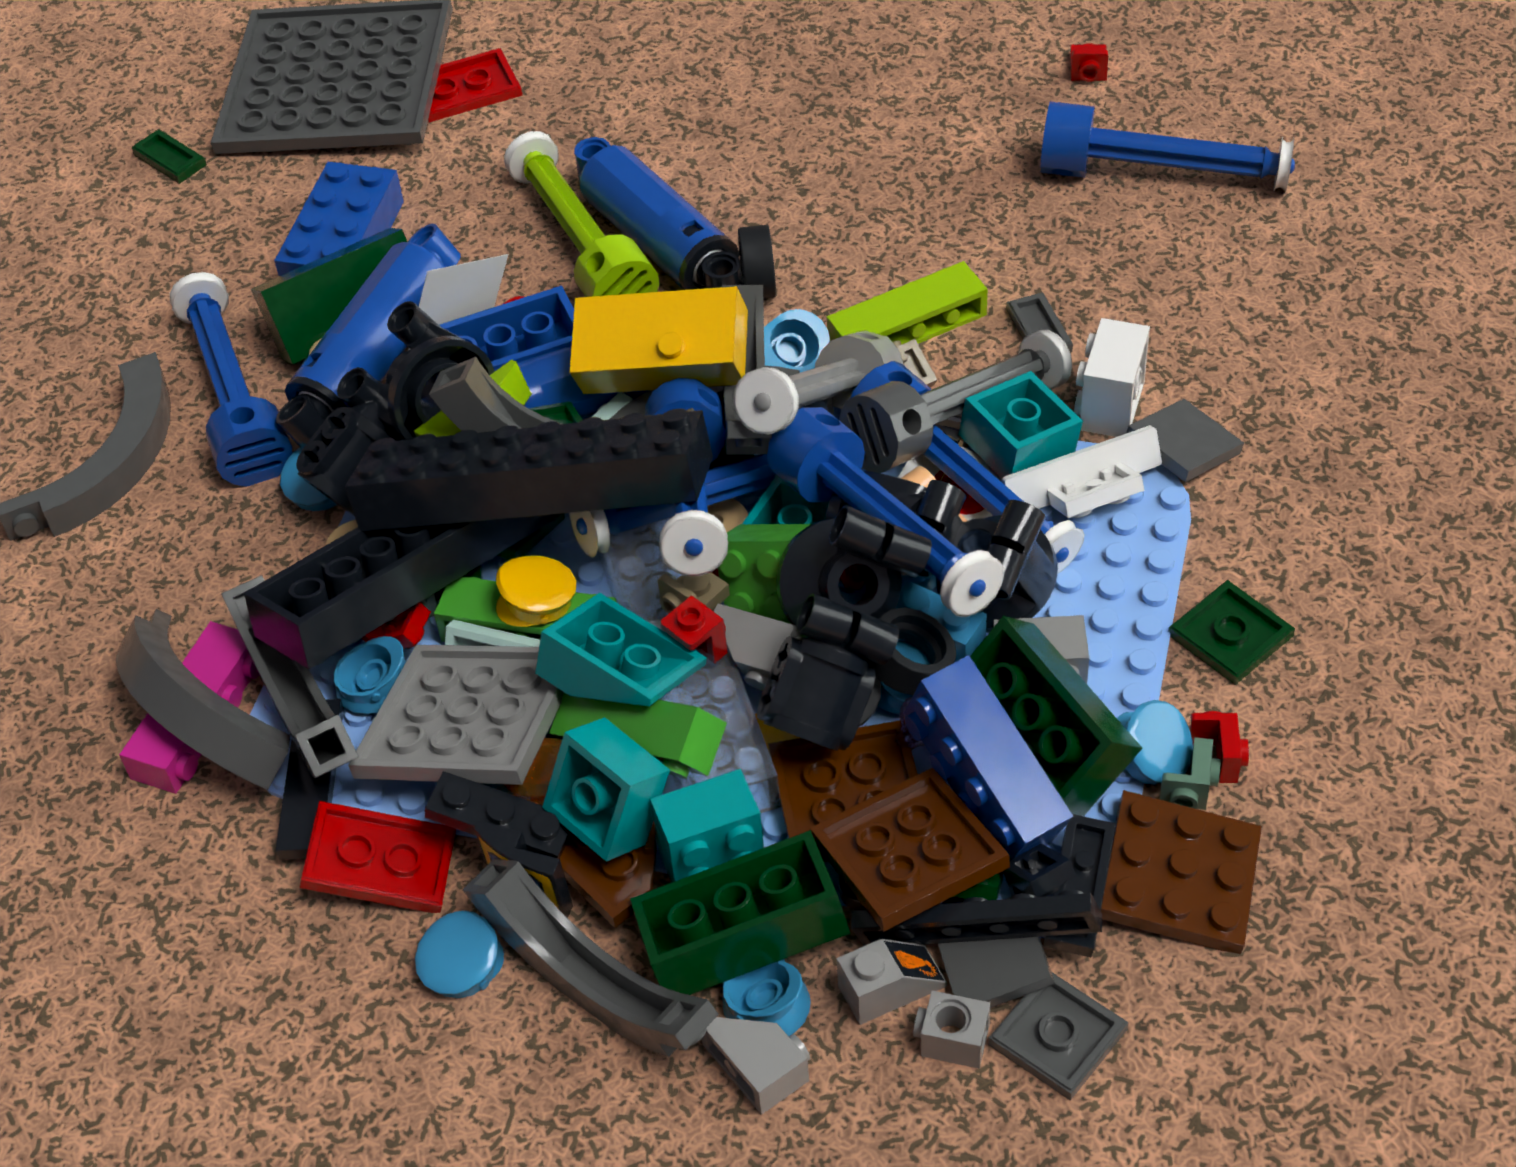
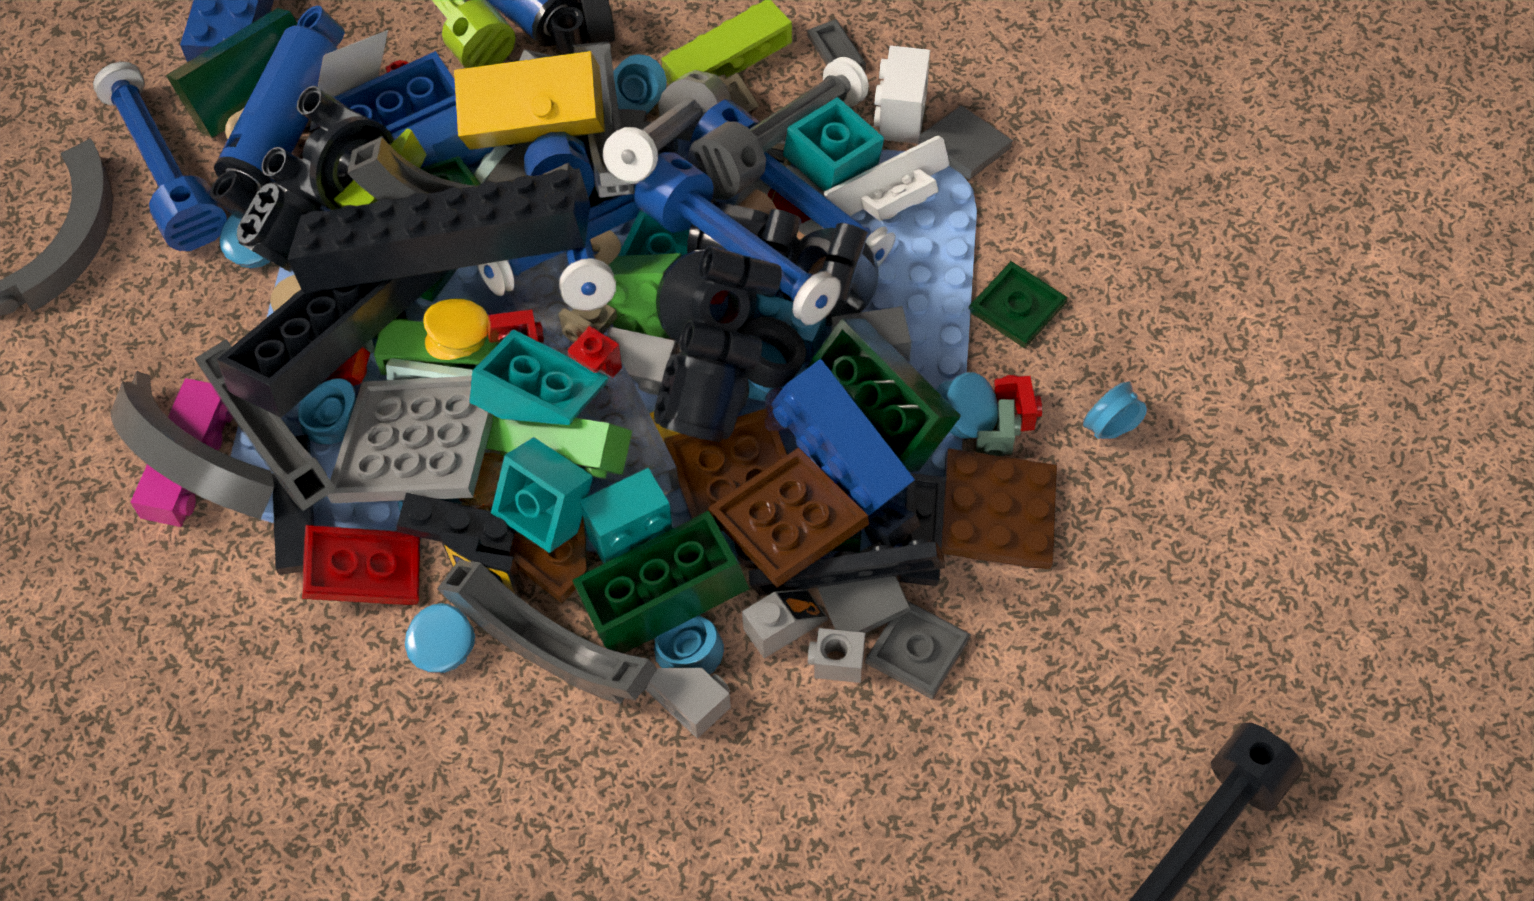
camera: 10 degrees left, 10 degrees up
(608, 583) = (522, 321): none -> red bracket
(1343, 768) = (1115, 412): none -> dark azure piece

